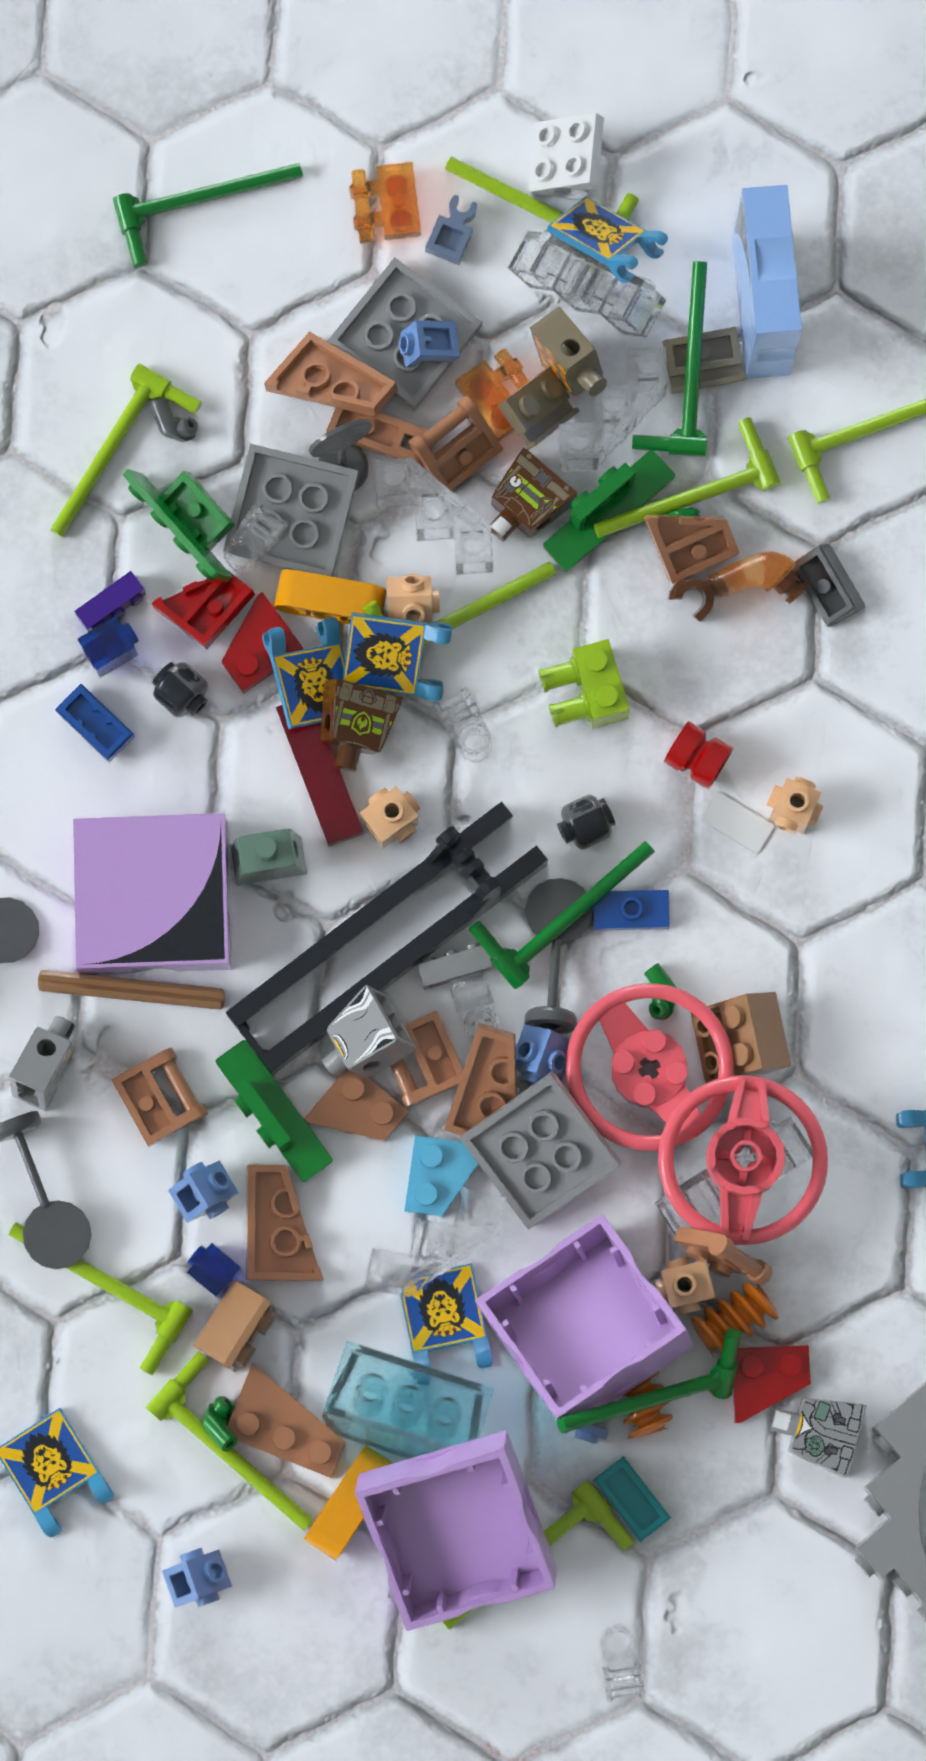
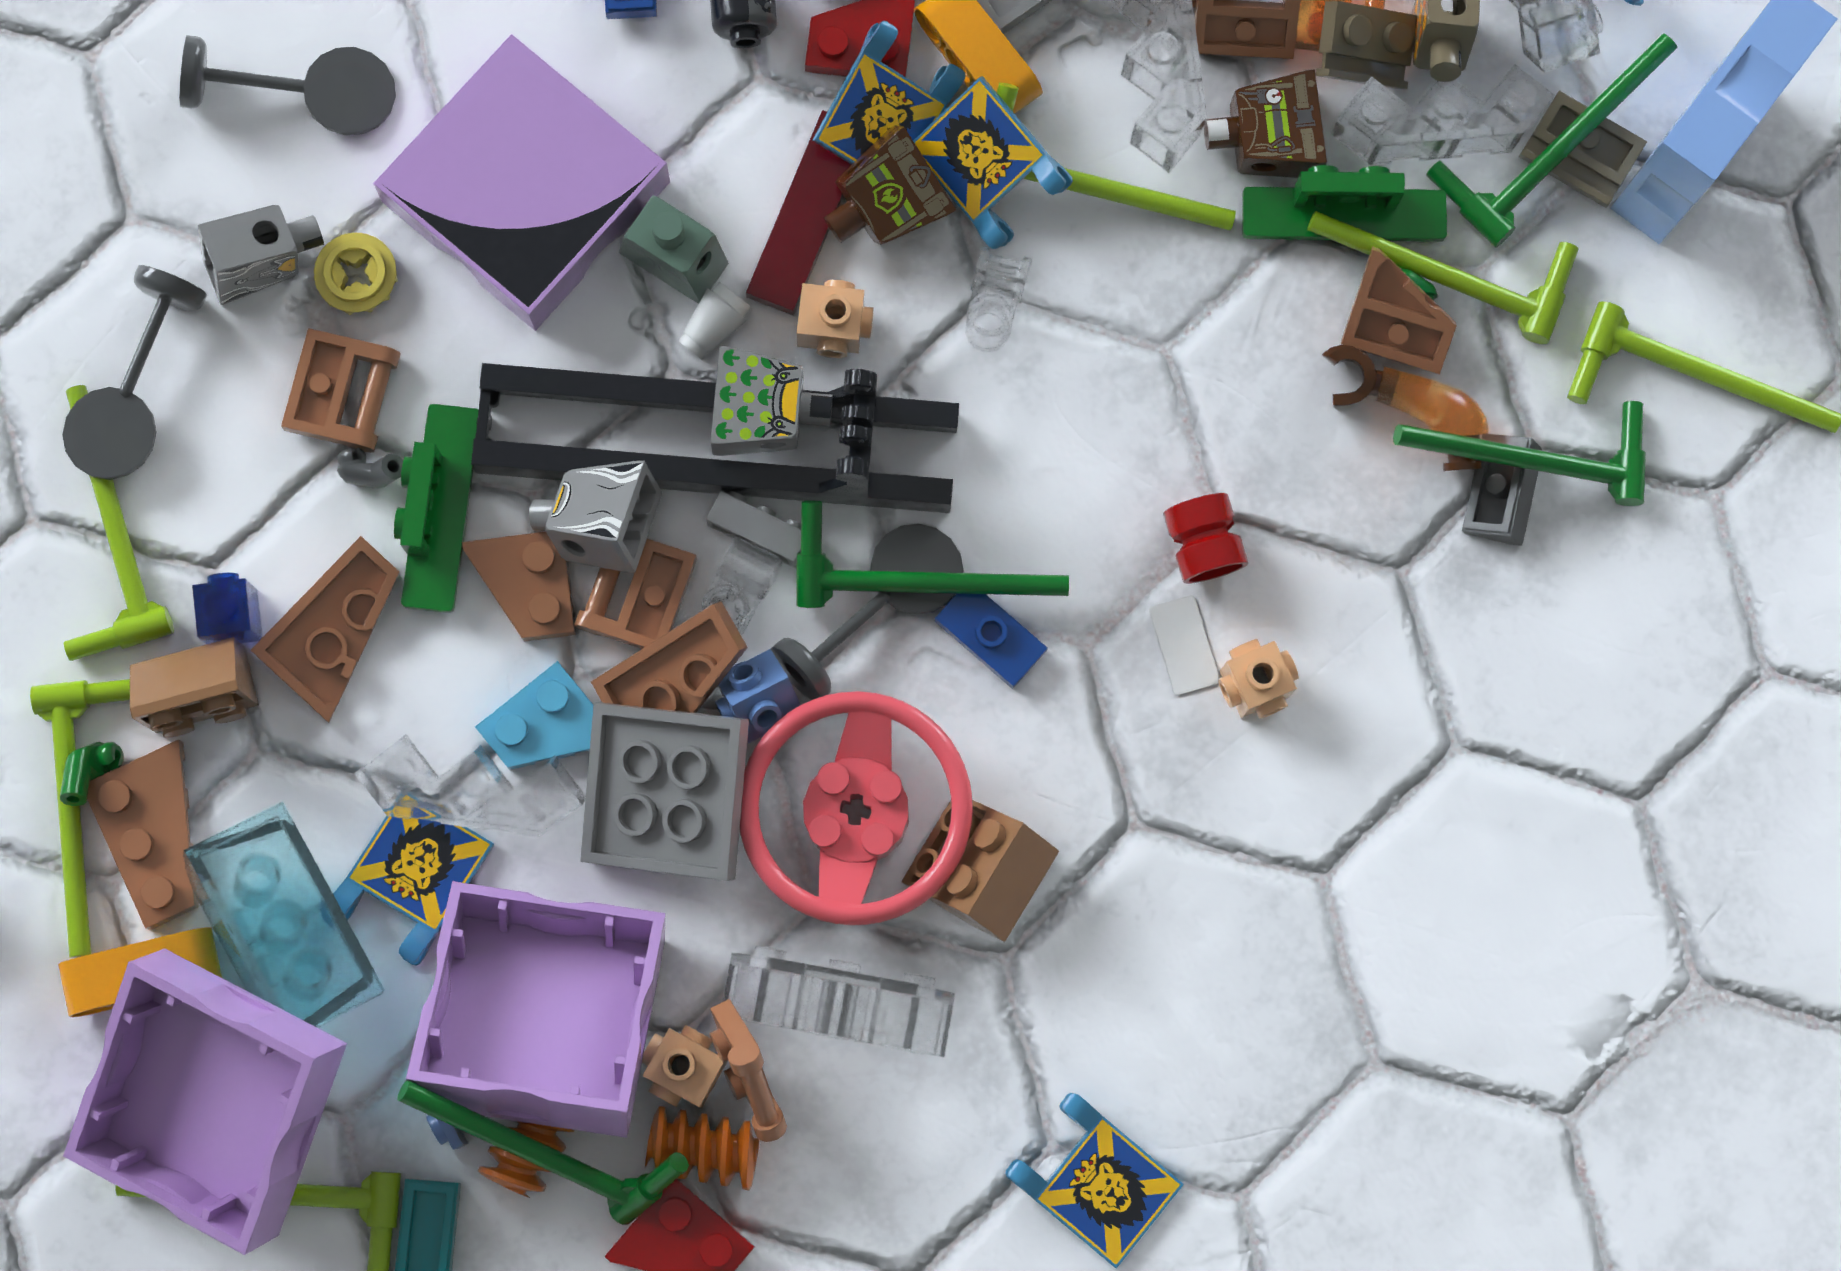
camera: 35 degrees right, 0 degrees up
(92, 1015) = (355, 250): none -> light yellow gear
(131, 989) = (416, 260): medium nougat axle -> none
(203, 1191) = (291, 521): medium blue brick -> none
(221, 1126) = (375, 475): none -> dark grey arm
(325, 875) = (714, 320): none -> white cone
(400, 897) = (761, 404): none -> light grey torso
(412, 598) = (1059, 121): light nougat brick -> none
(586, 822) = (1026, 503): black head -> none
(601, 688) = (1163, 389): lime brick -> none
(659, 1008) = (955, 726): green arm -> none
(741, 1186) = (827, 1019): coral piece -> none
(884, 520) = (1623, 473): none -> green bar

